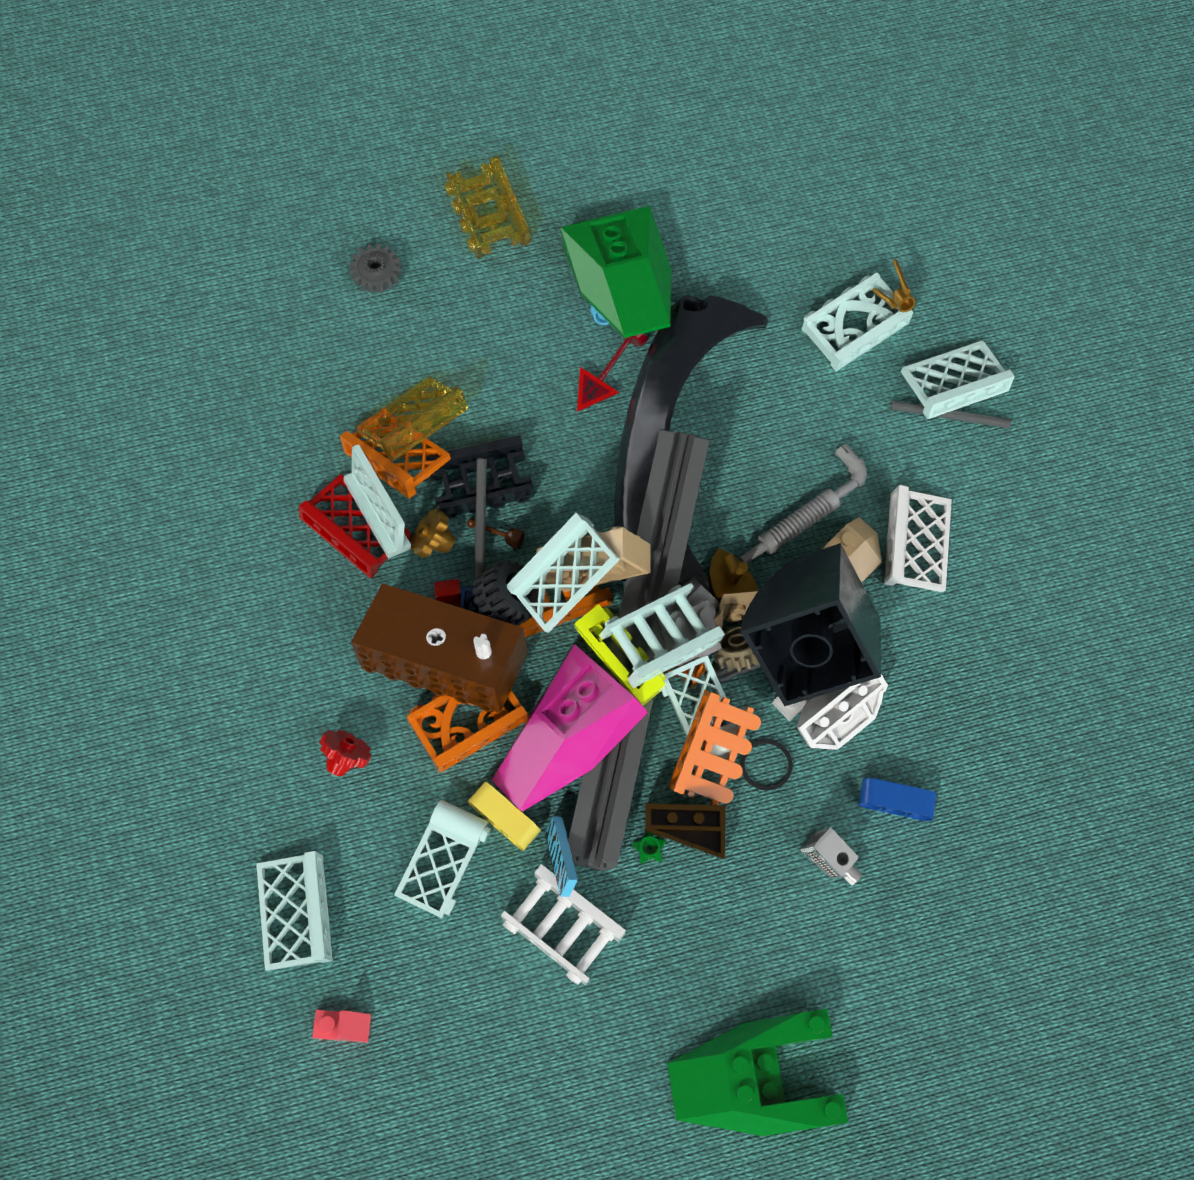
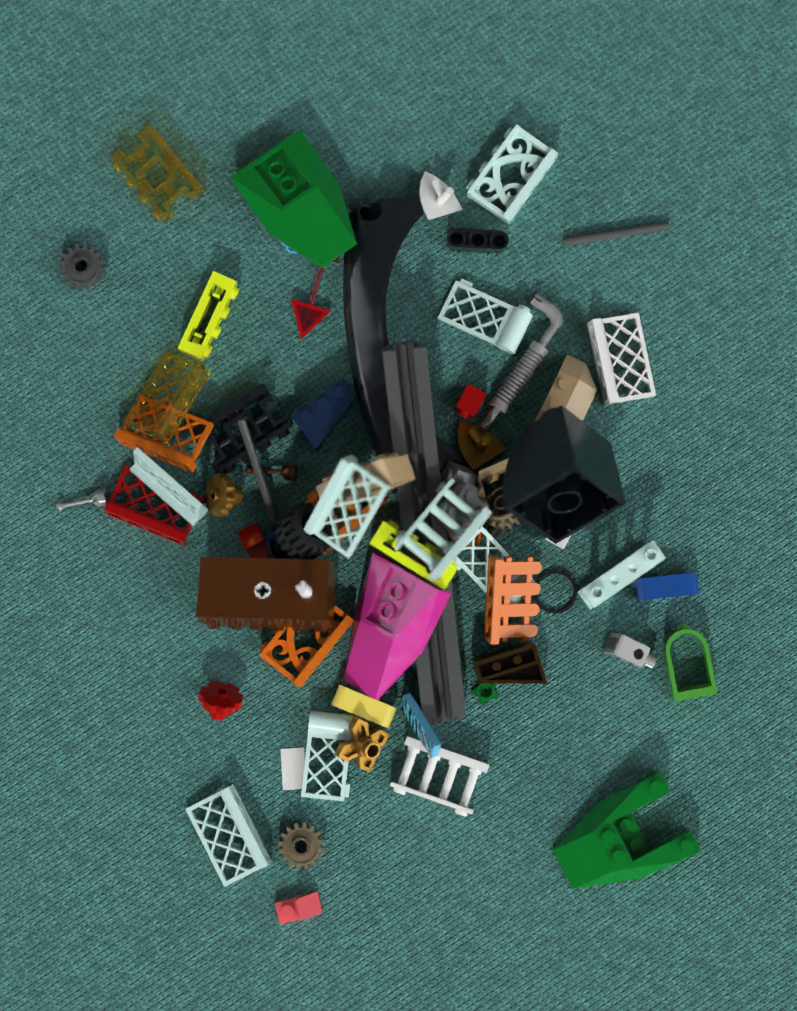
camera: 20 degrees left, 15 degrees up
(297, 497) = (99, 498): none -> light grey hinge
(379, 965) = (292, 854): none -> dark tan gear
(396, 860) = (292, 768): none -> white sticker
(486, 858) = (363, 746): none -> pearl gold plant
(513, 336) = (223, 284): none -> neon yellow brick
(575, 487) = (324, 412): none -> dark blue wedge
(737, 529) = (470, 402): none -> red brick
(770, 318) = (437, 197): none -> white shield
(806, 381) = (486, 235): none -> black beam
(808, 467) = (512, 325): none -> light aqua piece
(840, 715) = (599, 539): white wedge -> none
(849, 764) = (621, 575): none -> light aqua fence
(892, 930) = (691, 691): none -> bright green window
(901, 297) = (545, 144): pearl gold plant -> none
(966, 391) = (625, 212): light aqua fence -> none

